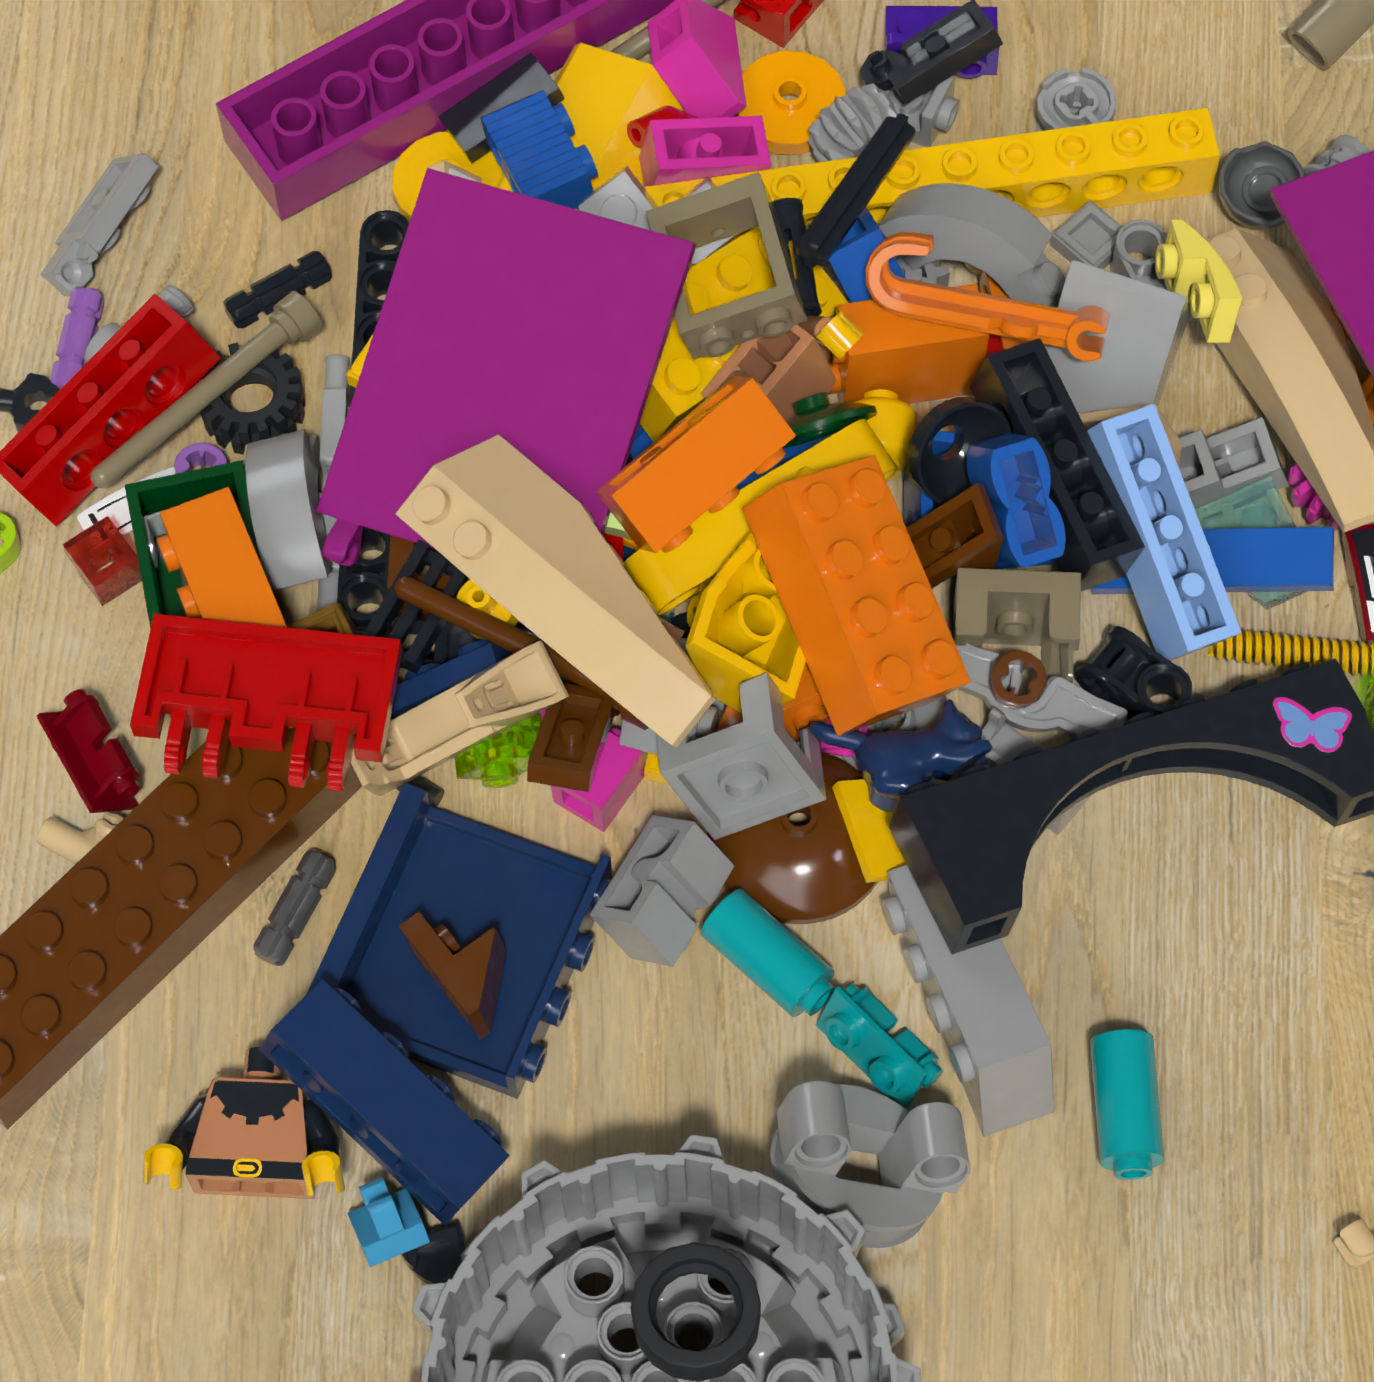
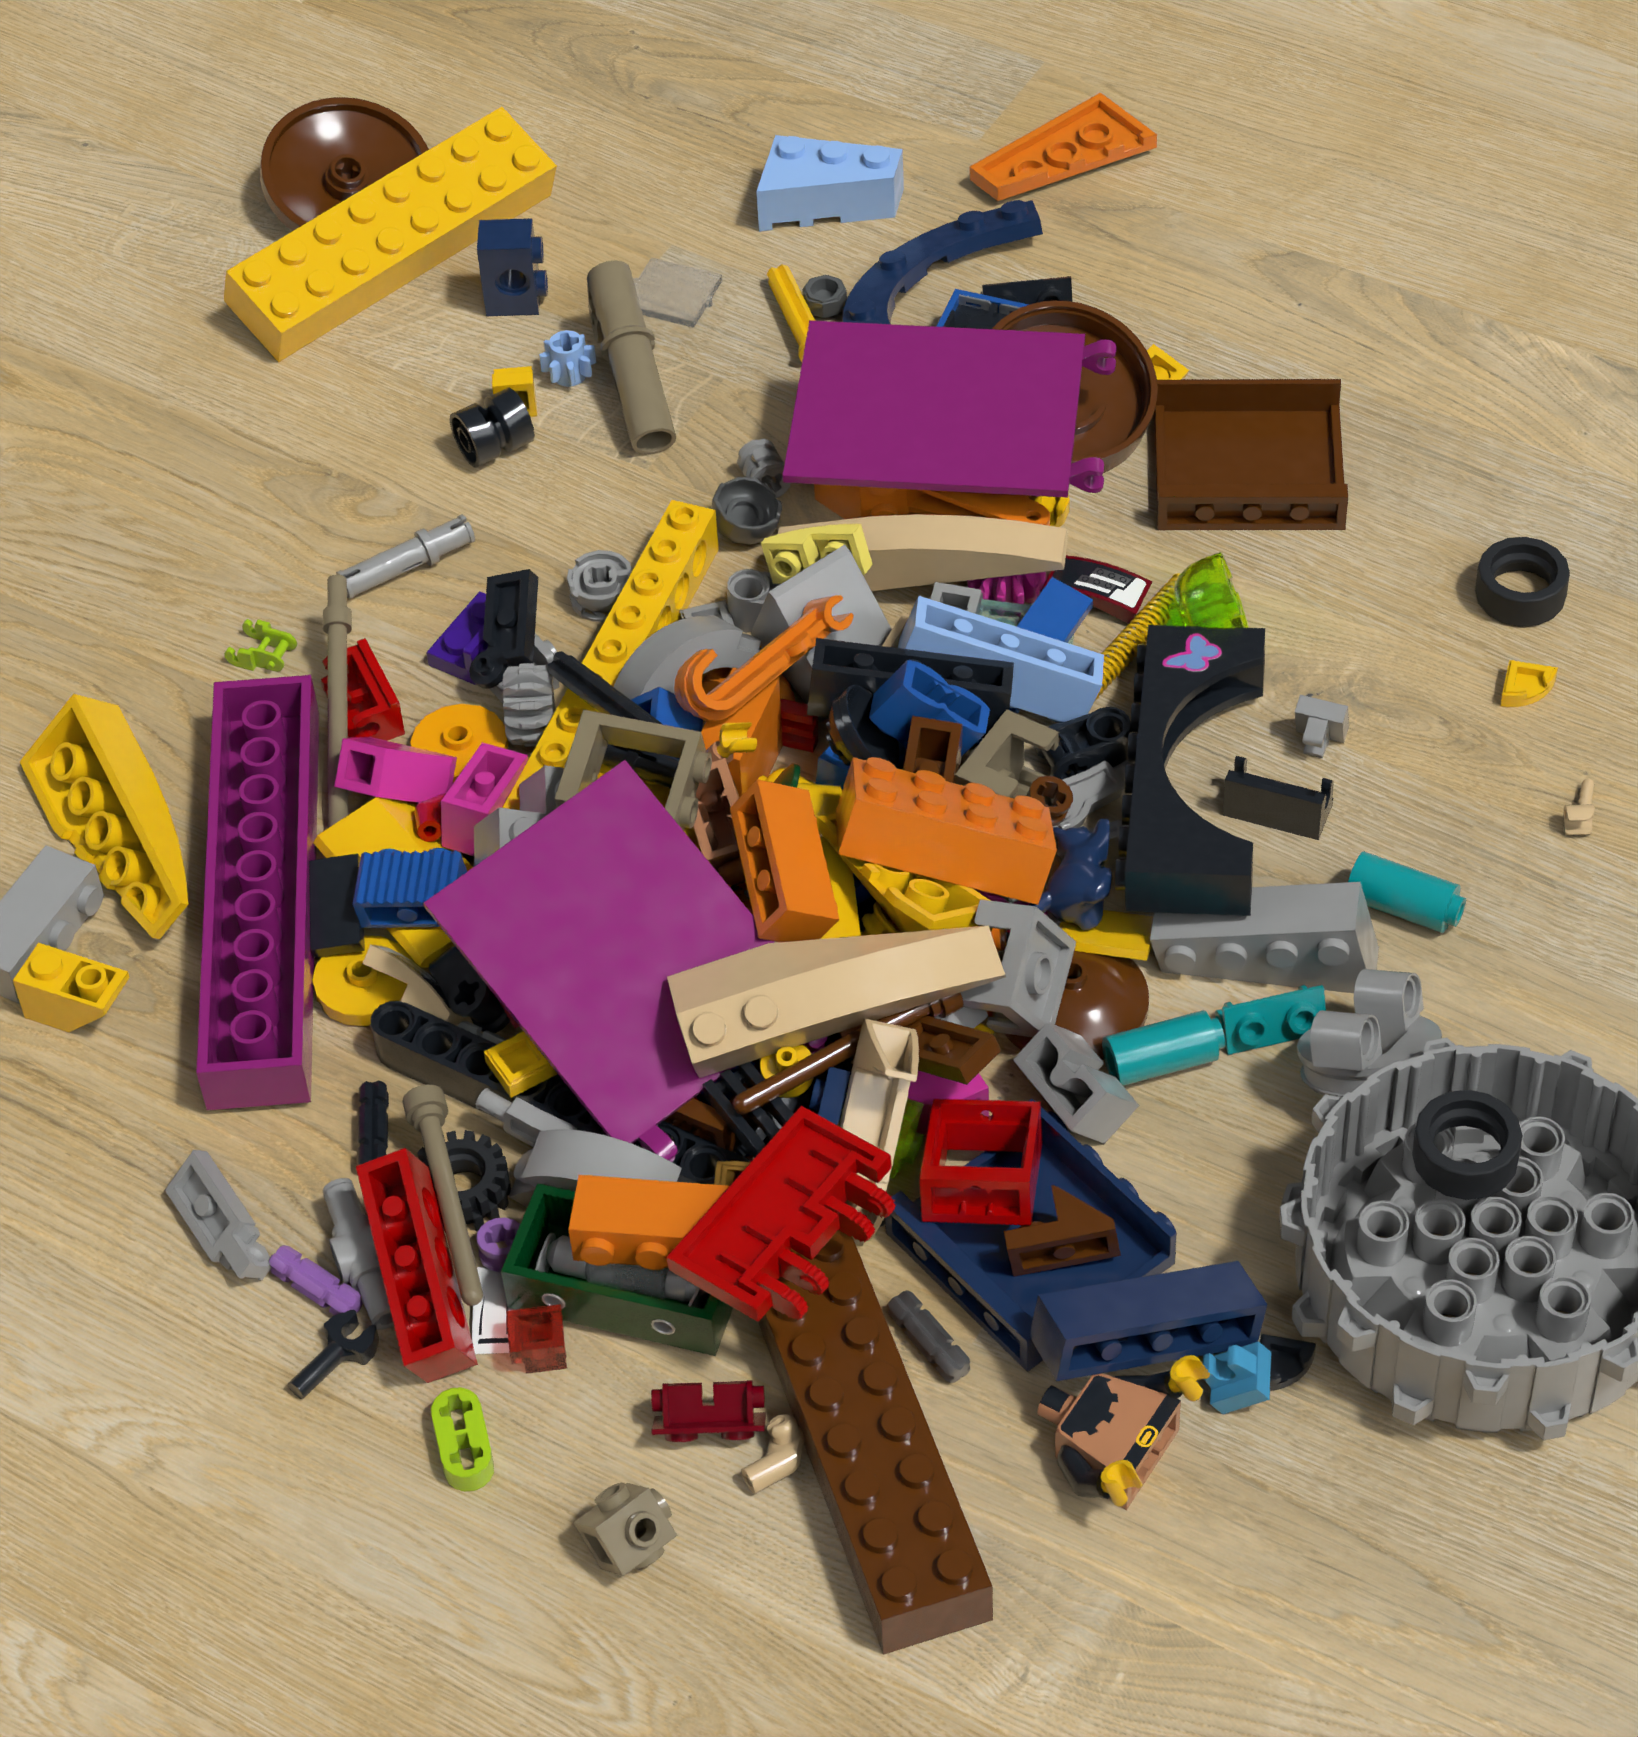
camera: 60 degrees left, 15 degrees down
(439, 868) = (981, 1193): none -> red window
(1187, 911) = (1276, 802): none -> black hinge
(1317, 905) = (1319, 723): none -> light grey tile

